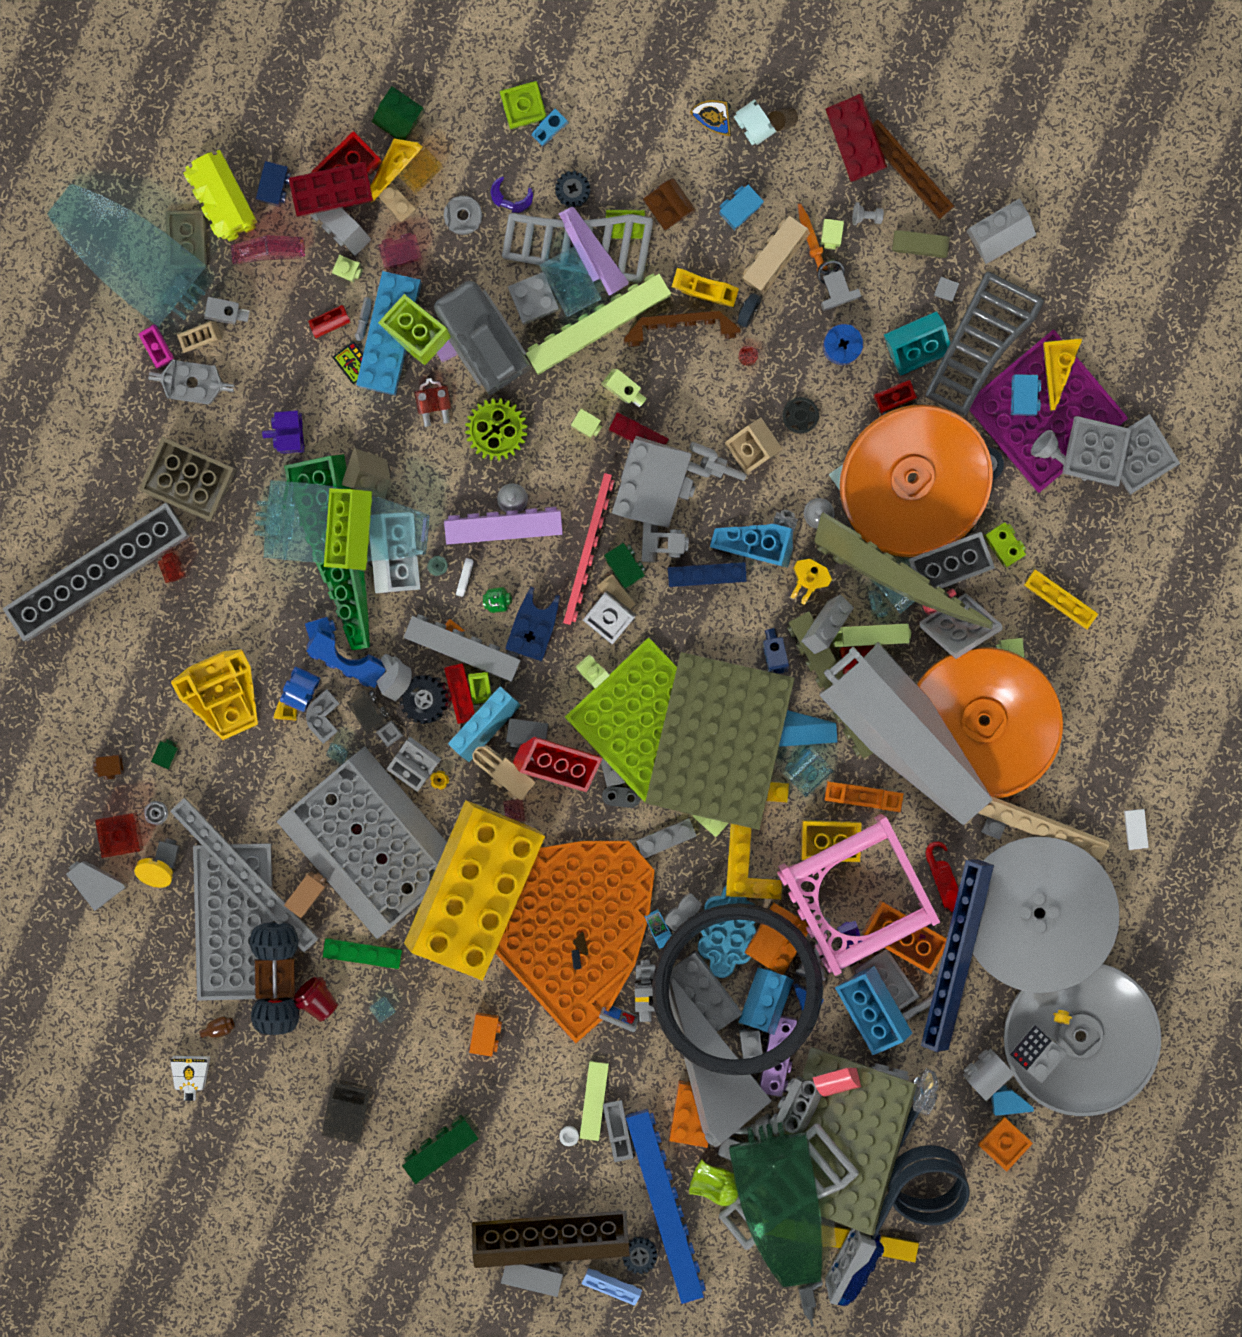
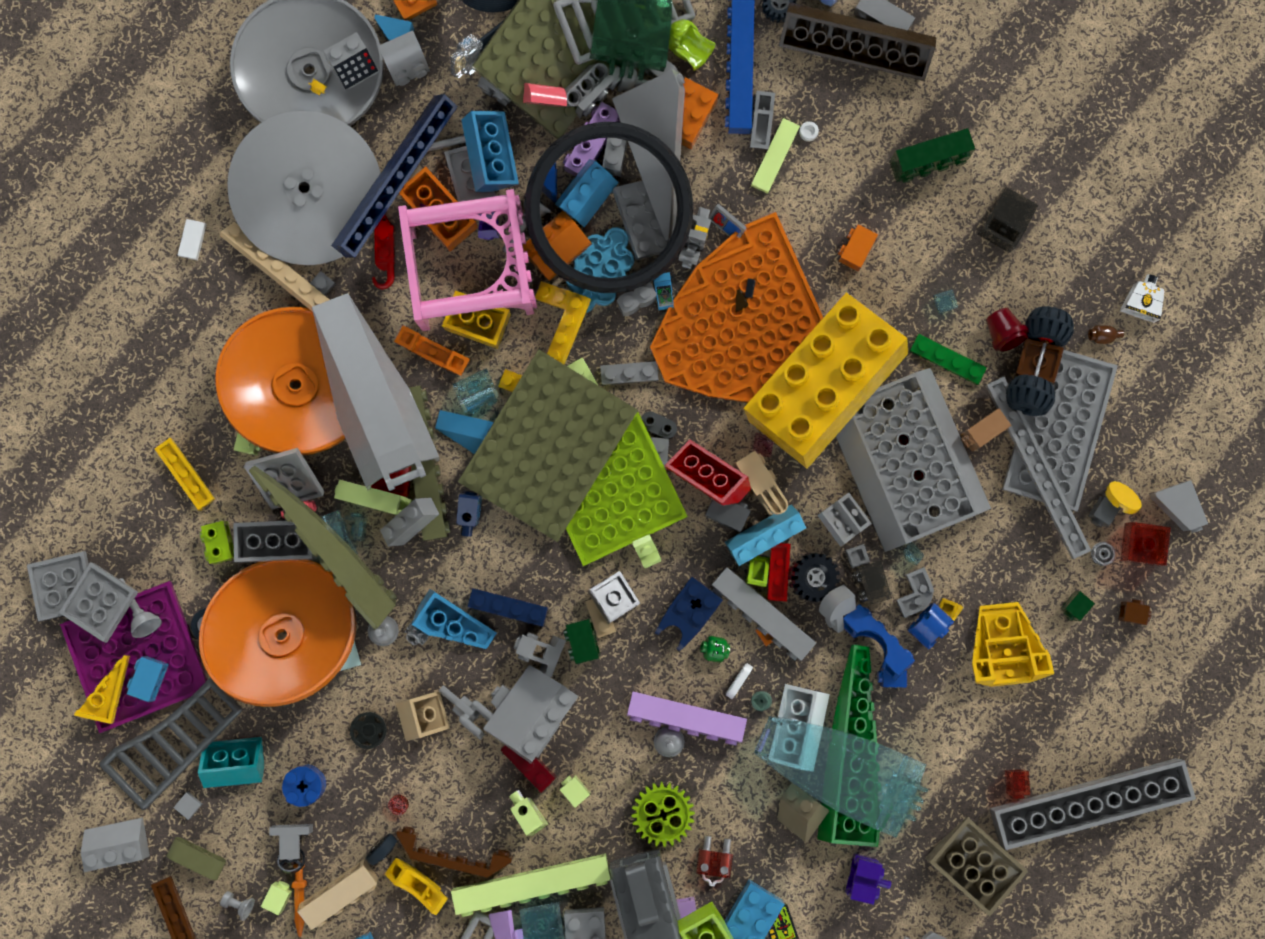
camera: 165 degrees left, 5 degrees down
(347, 528) = (838, 766): lime slope -> none
(434, 780) = (829, 497): yellow plate -> none
(587, 557) = (607, 675): coral plate -> none
(809, 580) = (414, 571): yellow hinge -> none
(894, 396) = (272, 718): red brick -> none

